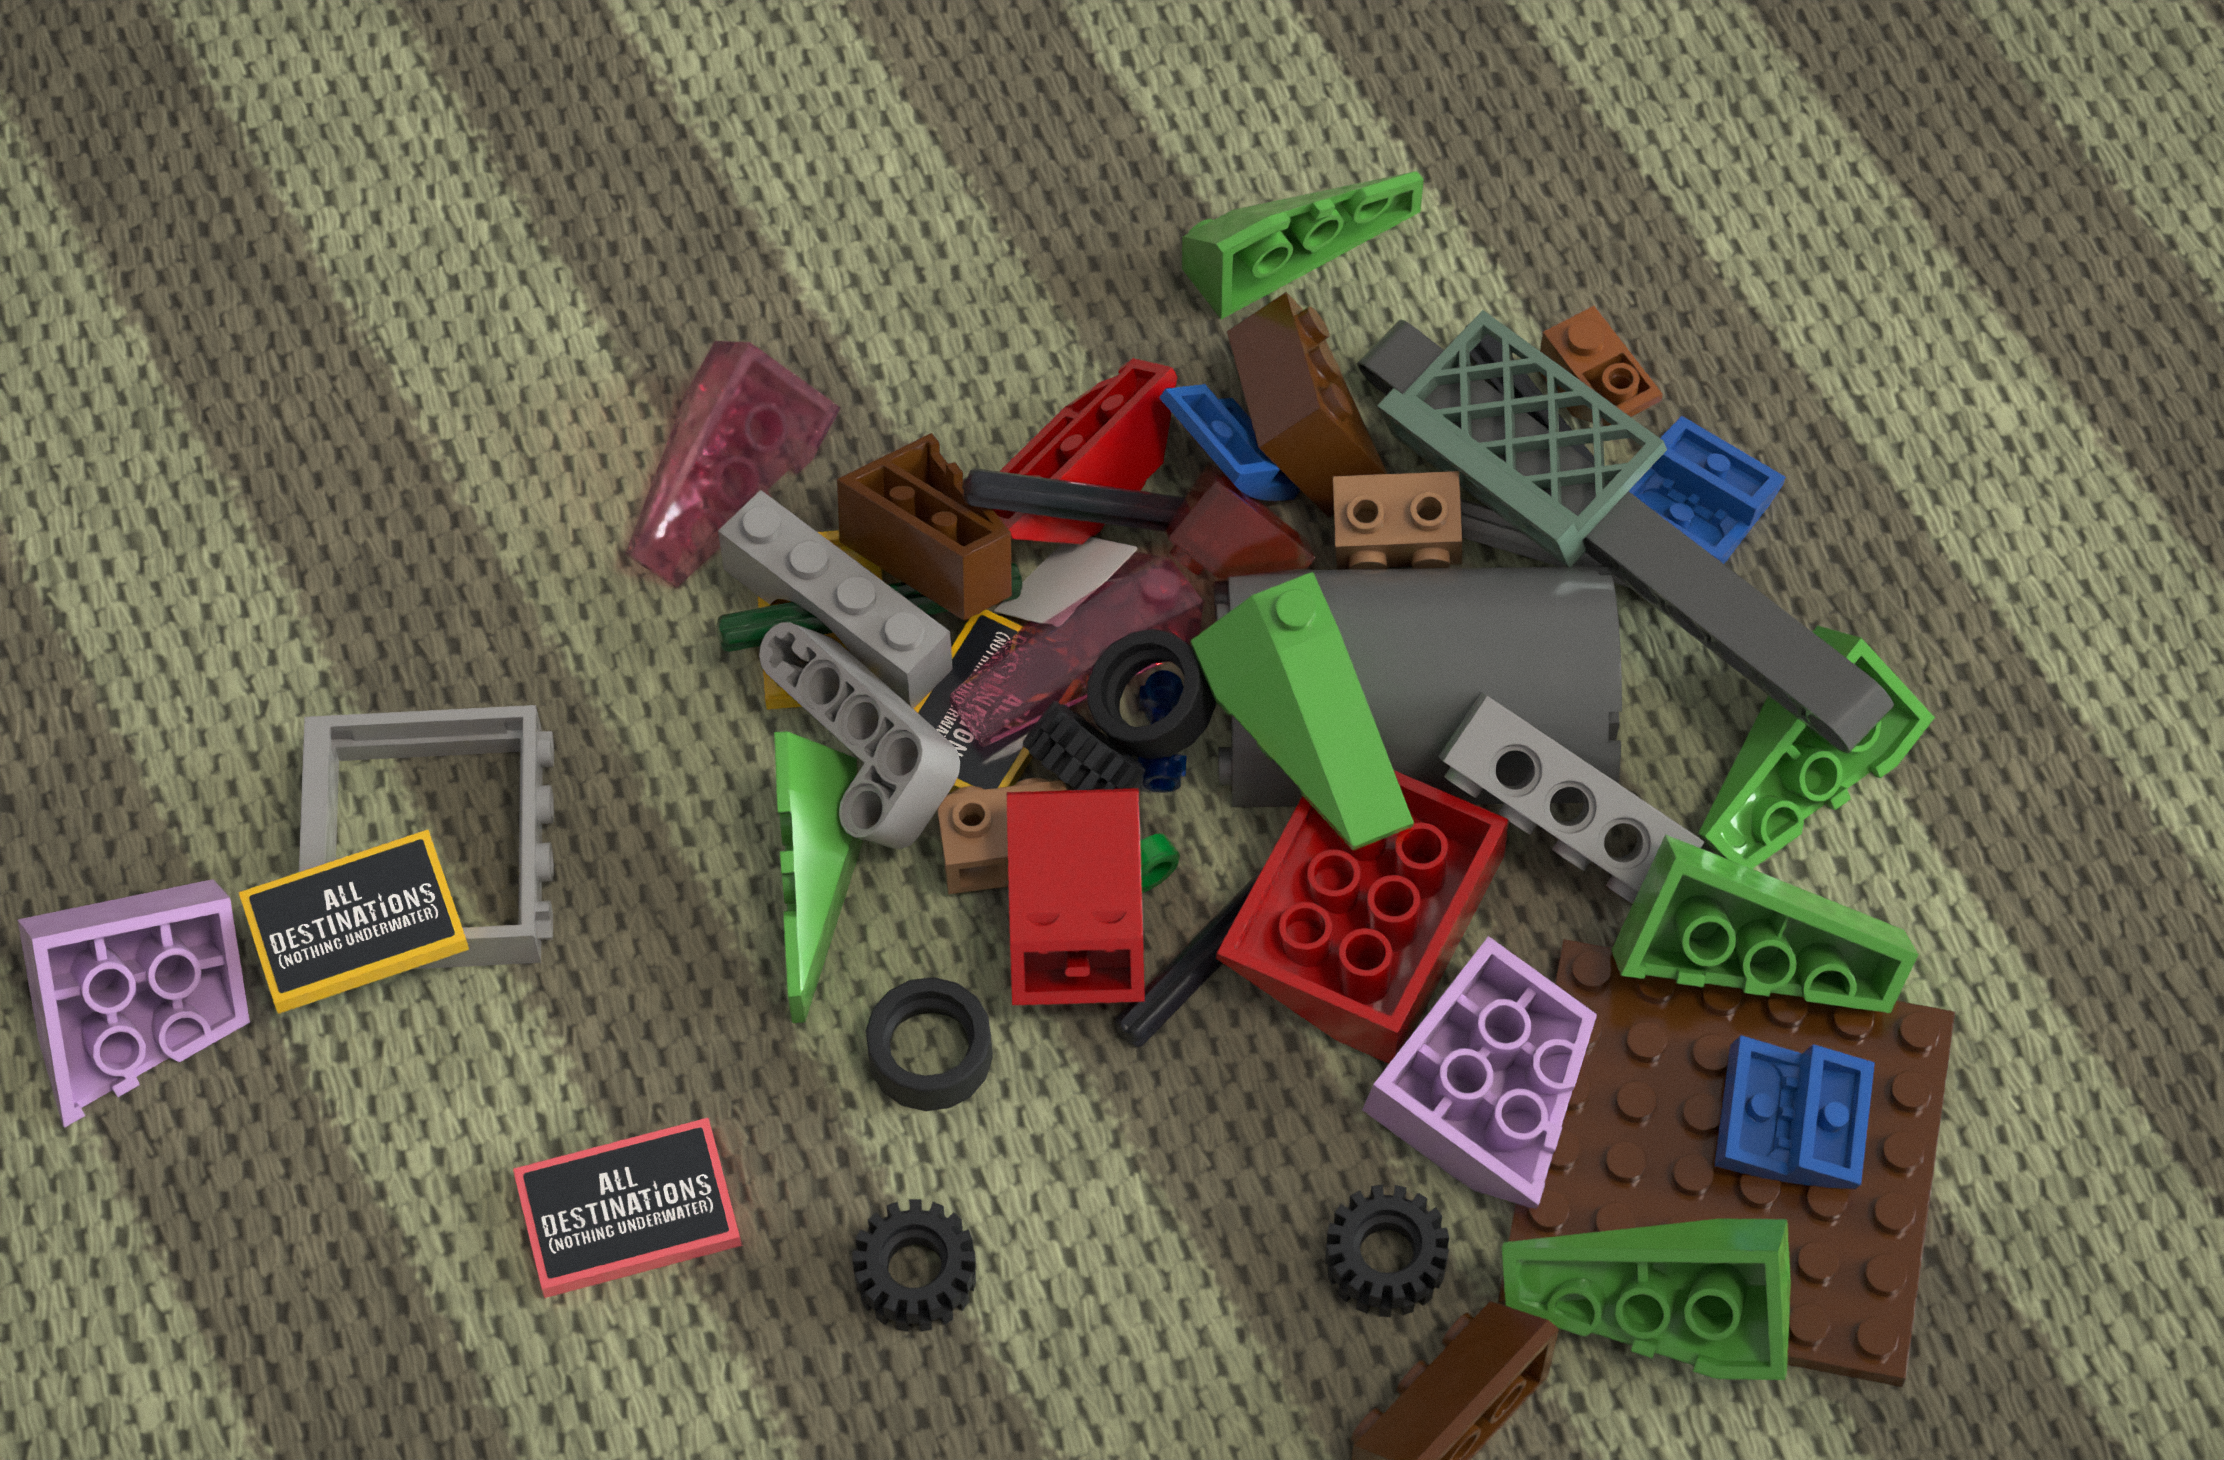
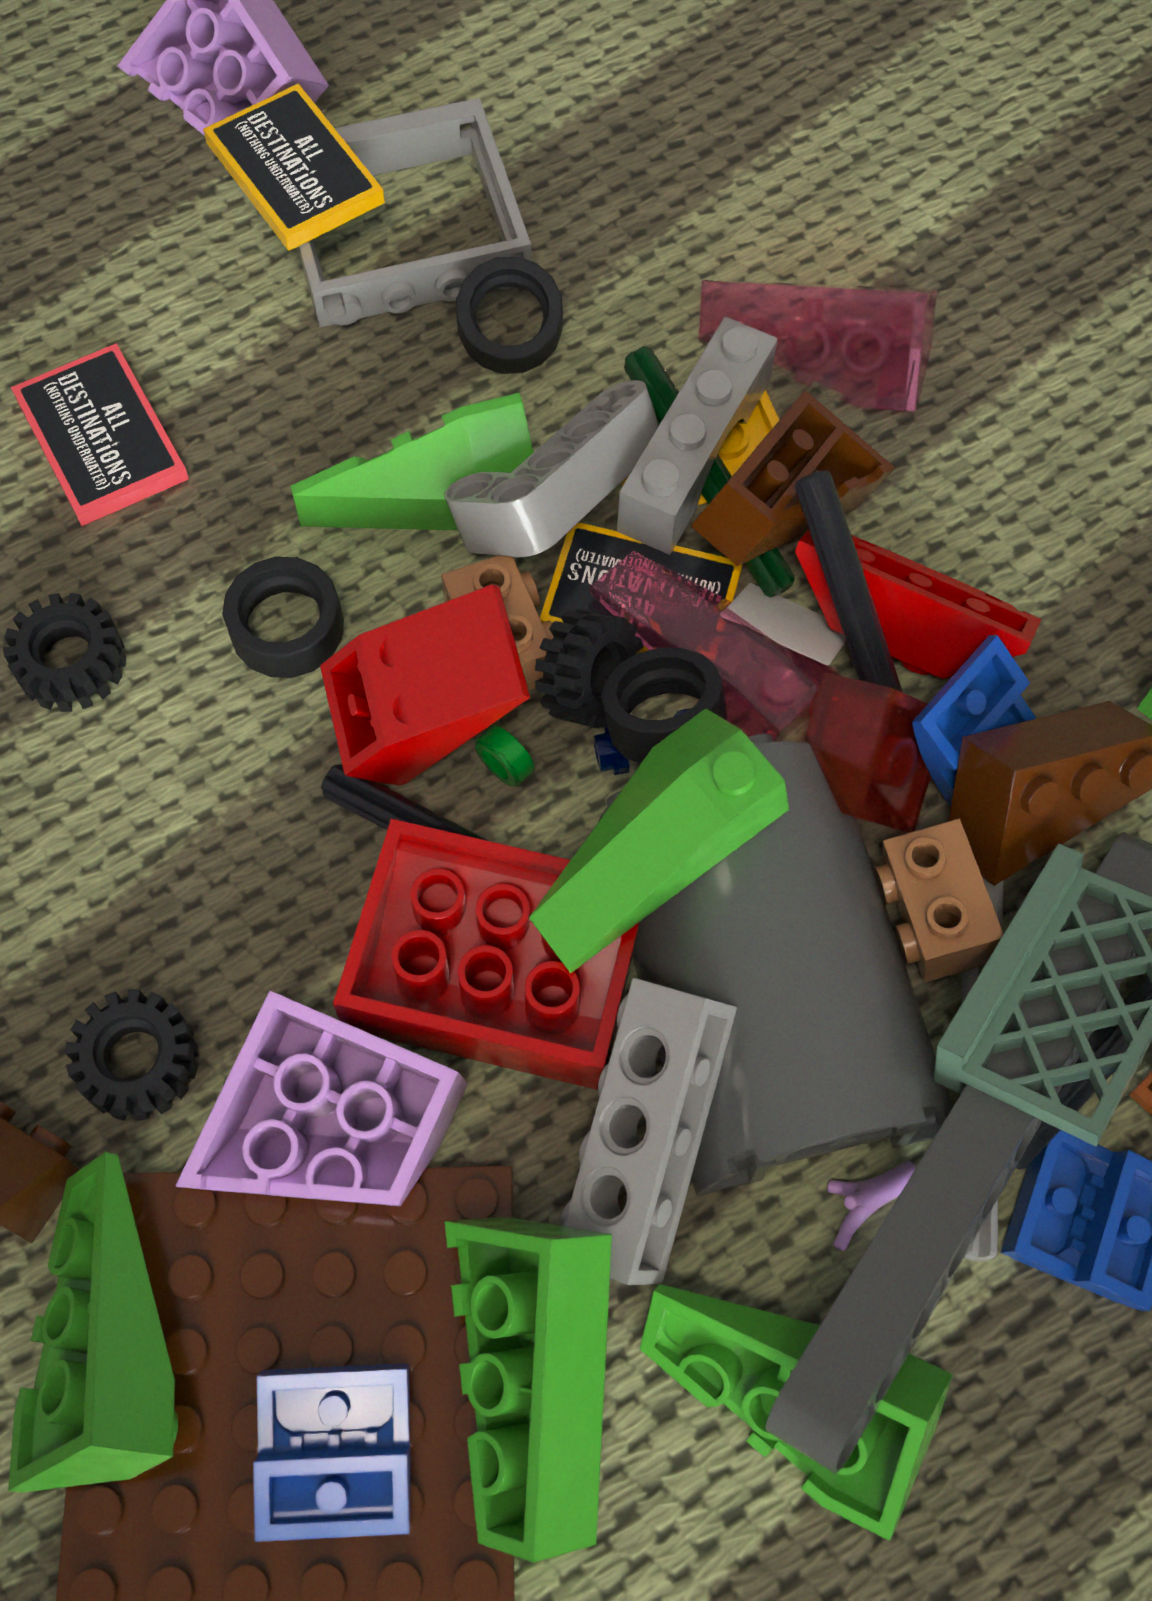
camera: 75 degrees right, 5 degrees up
(641, 717) = (509, 273): none -> black tyre
(1646, 660) = (866, 1197): none -> lavender bar

